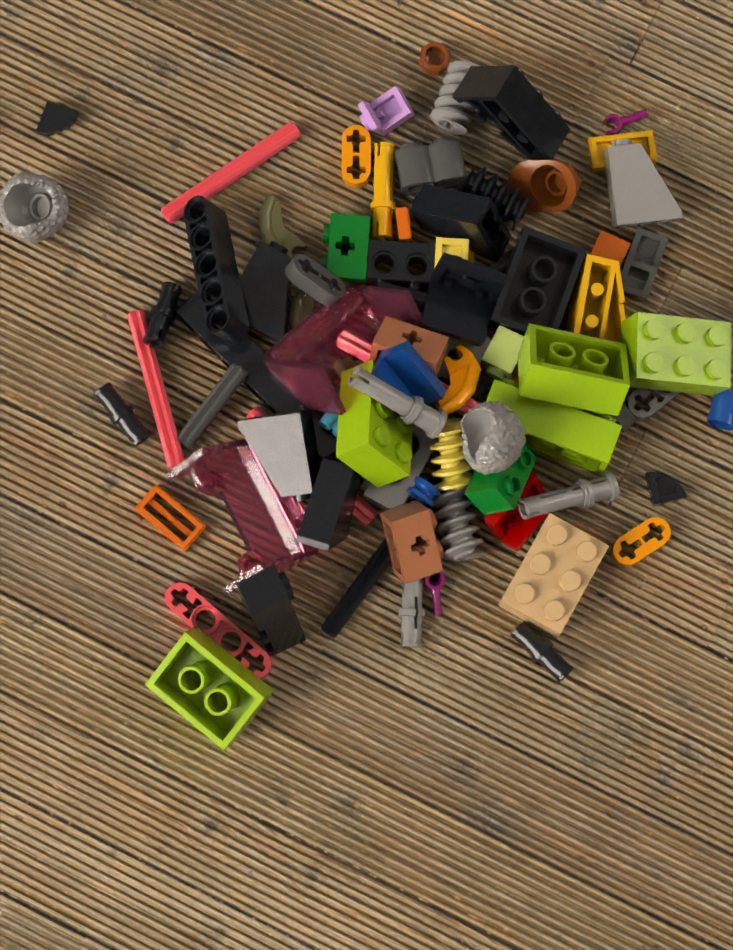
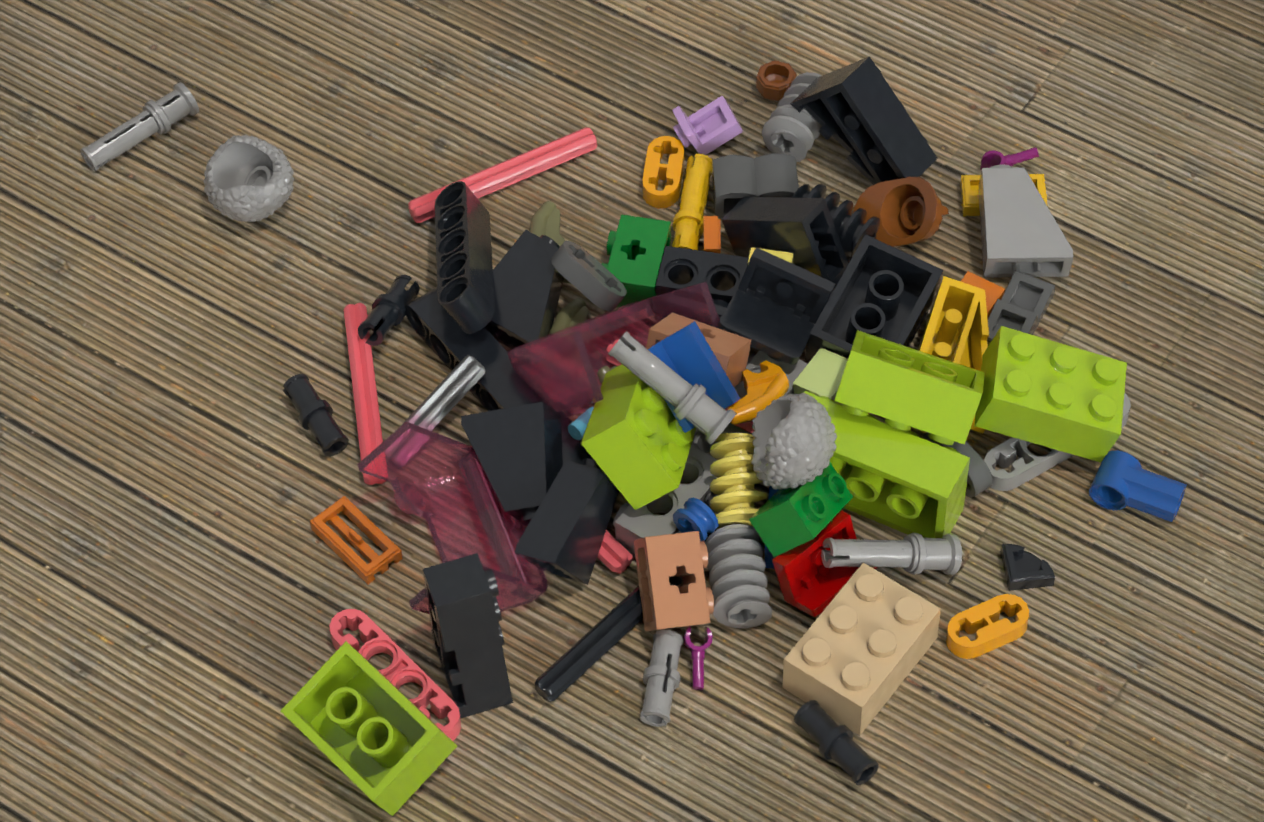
camera: 10 degrees right, 25 degrees down
(55, 119) = (297, 104): black tile -> none

